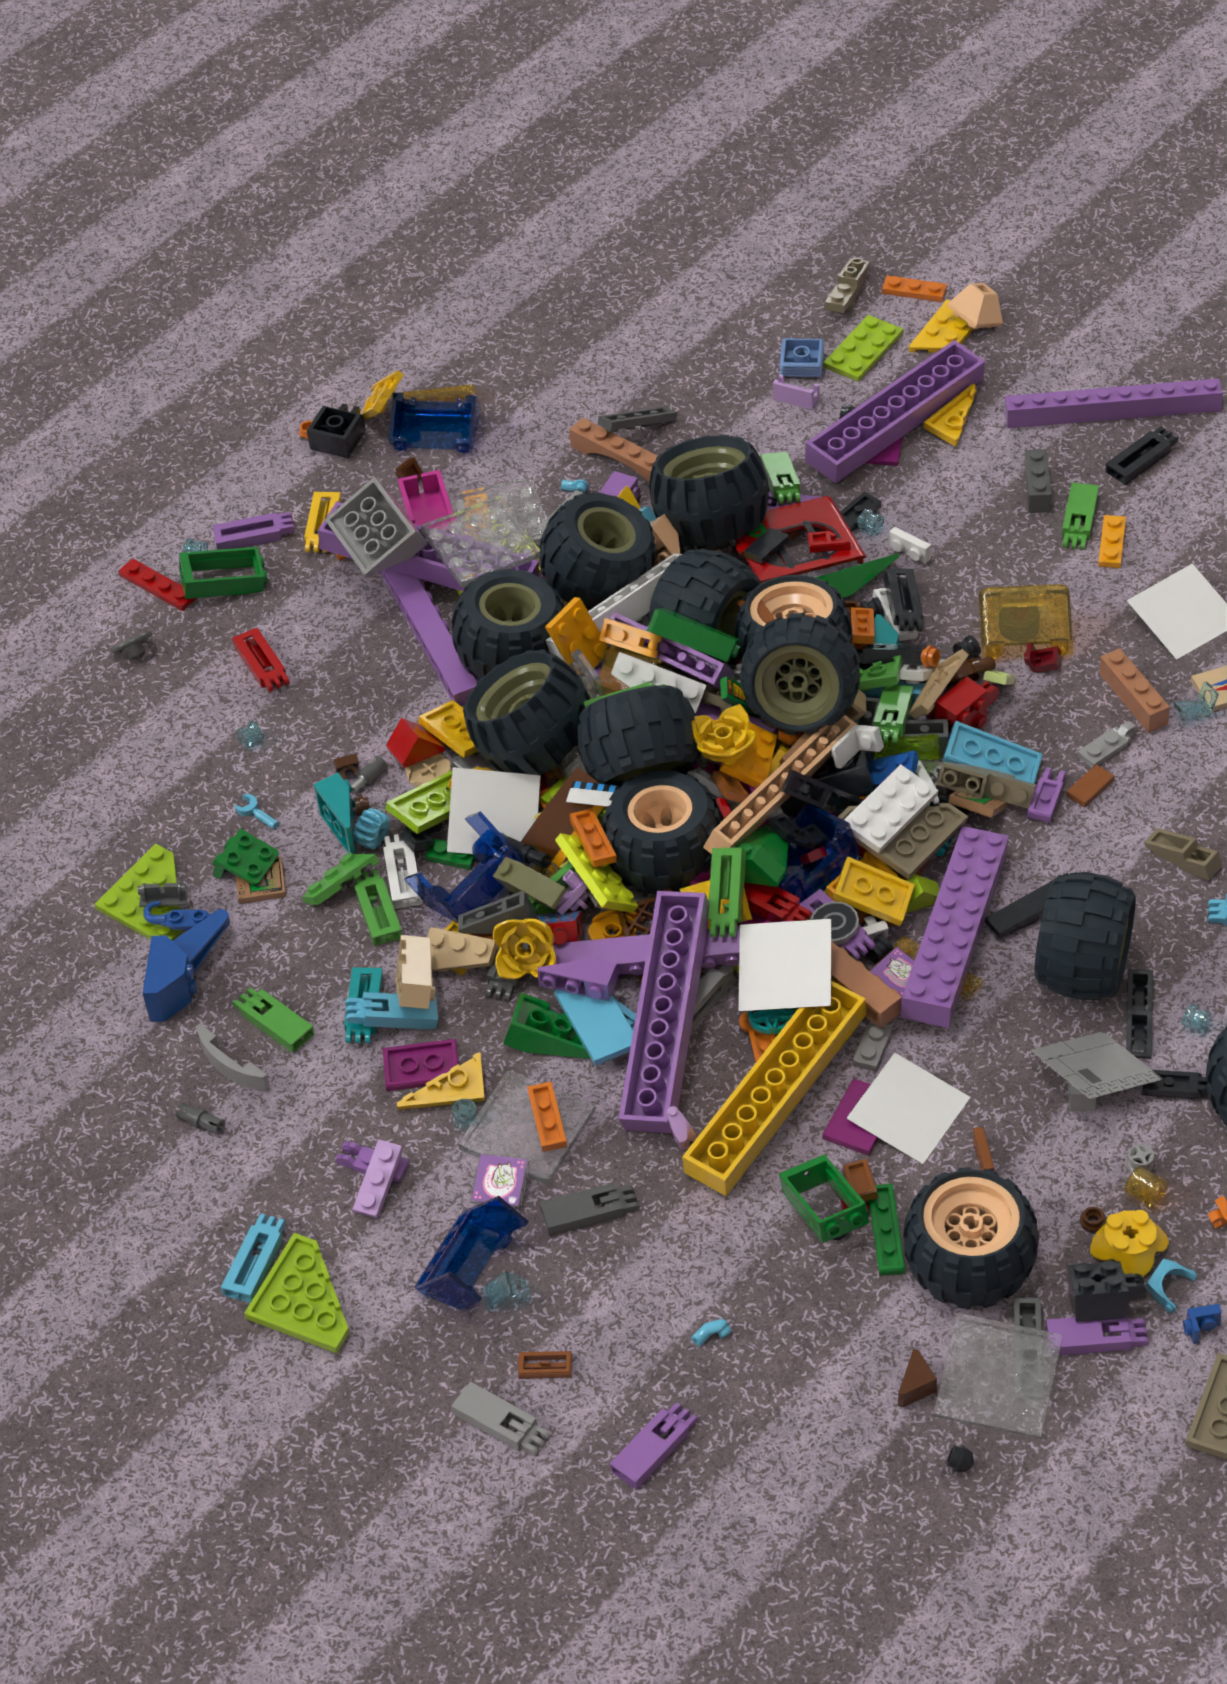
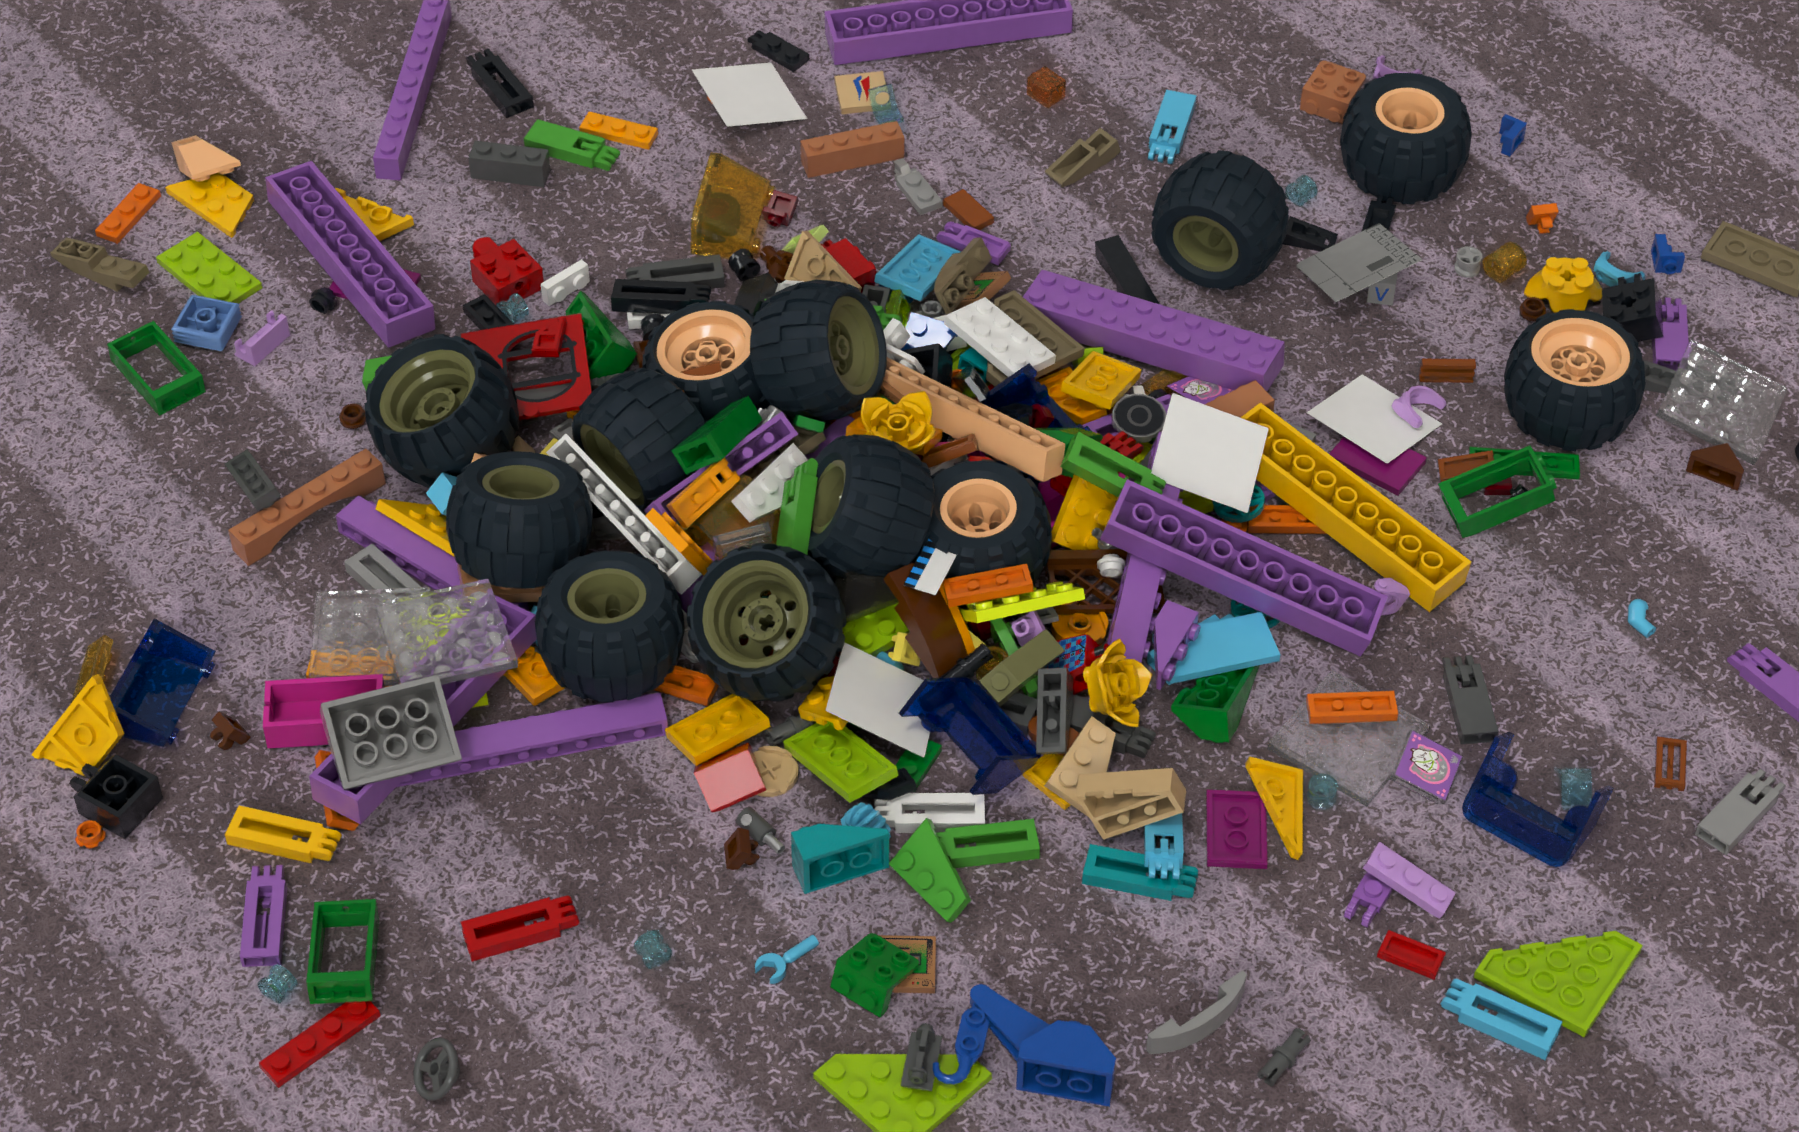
camera: 85 degrees left, 0 degrees up
(277, 1022) = (1149, 957): bright green hinge -> none
(312, 1194) = (1411, 954): none -> red tile
(580, 485) = (330, 564): medium azure arm -> none
(718, 351) = (171, 394): none -> green window
(766, 545) = (537, 389): black tile -> none
(909, 505) = (504, 270): none -> red brick
(930, 657) = (779, 274): orange plate -> none
(933, 1126) = (1416, 395): none -> lavender helmet
(948, 623) = (700, 270): none -> dark grey hinge

